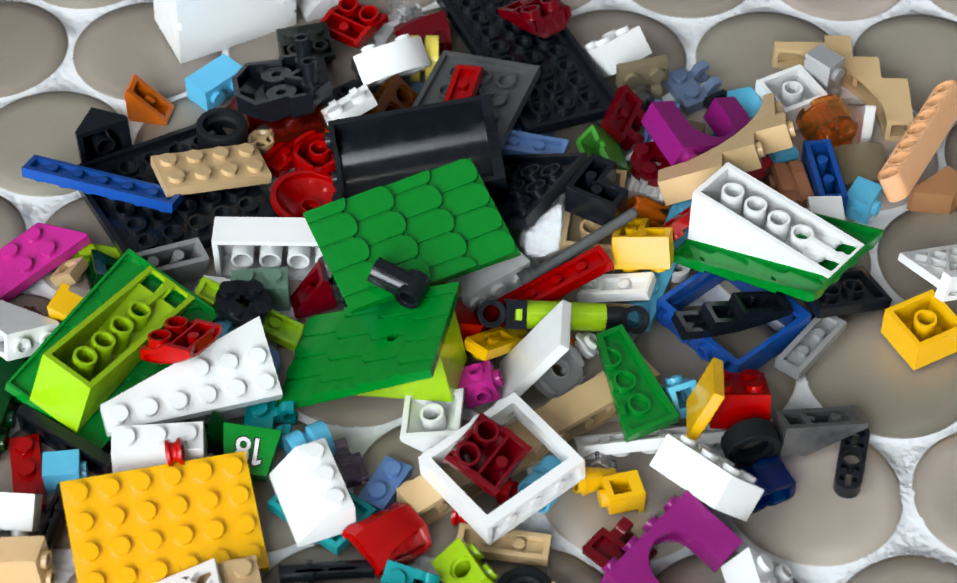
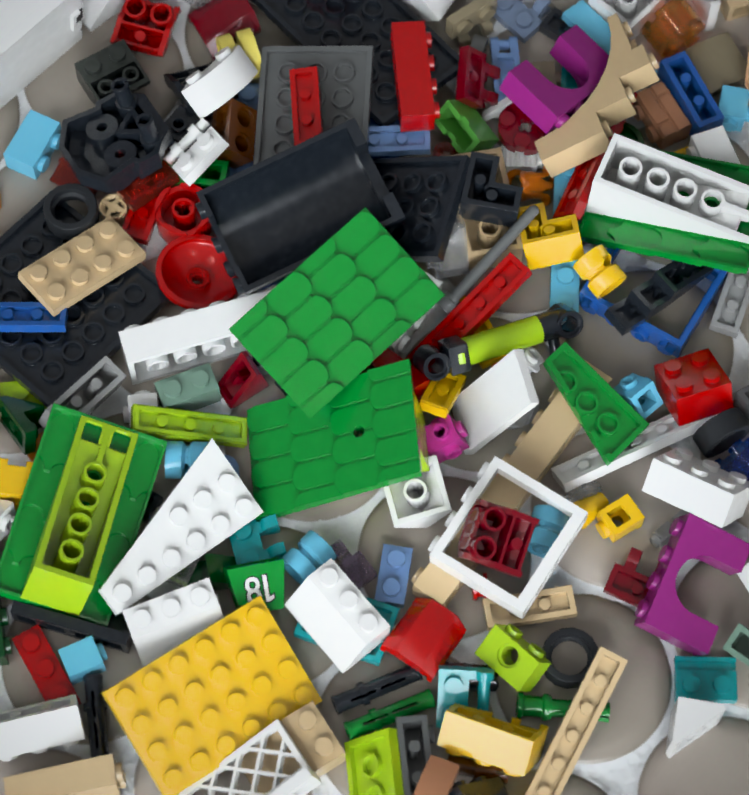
camera: 20 degrees left, 20 degrees up
(175, 452) = (197, 622): red bush -> none
(179, 340) = (152, 495): red slope -> none
(233, 293) = (189, 409): black plate -> none
(405, 285) = (358, 377): black piece -> none
(567, 99) = (413, 76): none -> red brick
(618, 288) = (543, 287): white hinge -> none
(679, 282) = (599, 271): none -> yellow wheel
(705, 399) = (674, 407): yellow tile -> none

